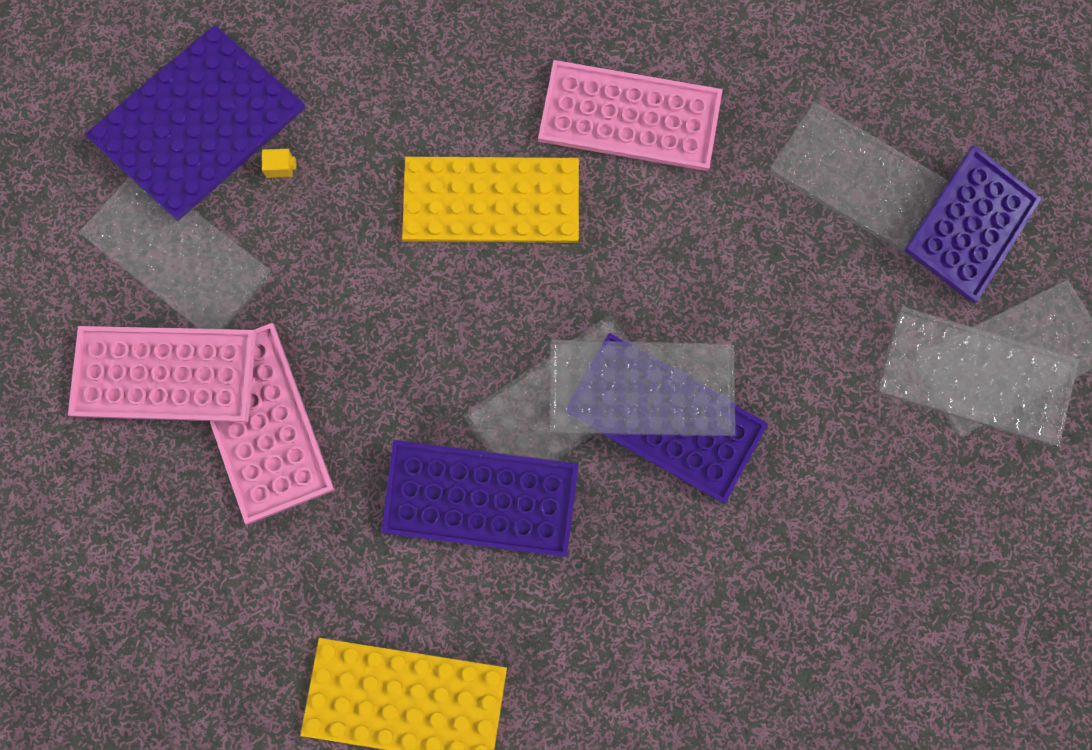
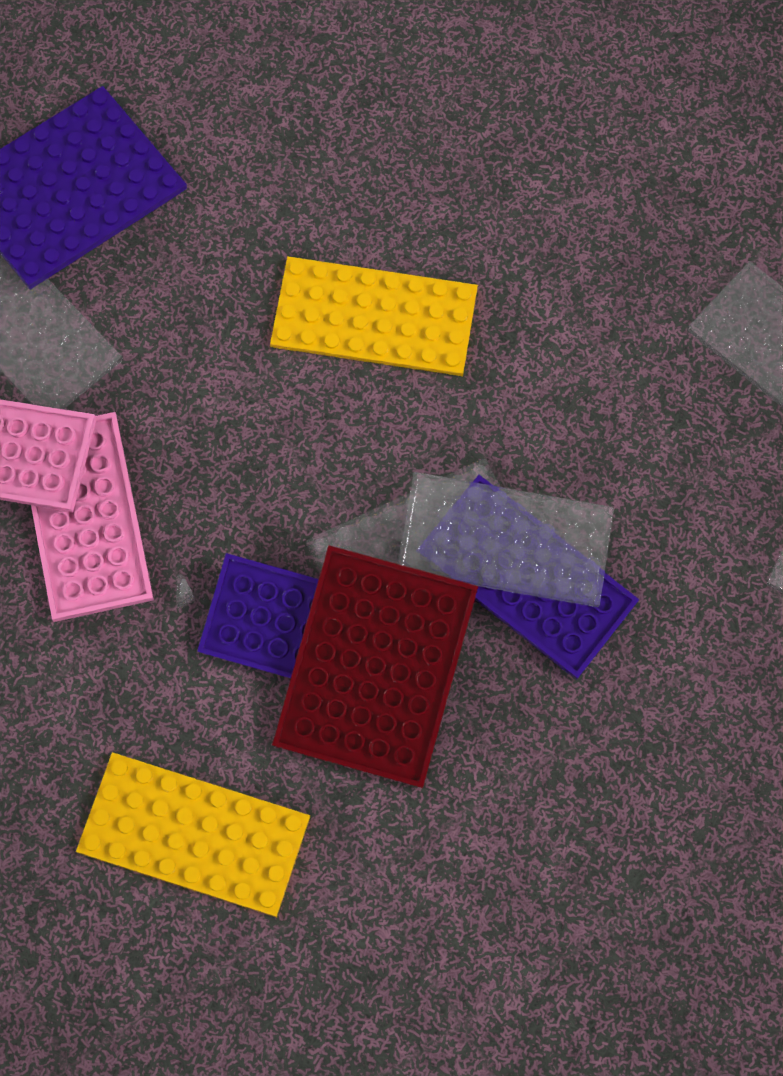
camera: 10 degrees right, 5 degrees down
(278, 163) = (148, 243): yellow brick -> none
(361, 481) = (184, 594): none -> clear slope
(544, 523) = (375, 666): none -> dark red plate
(630, 115) = (542, 247): bright pink plate -> none

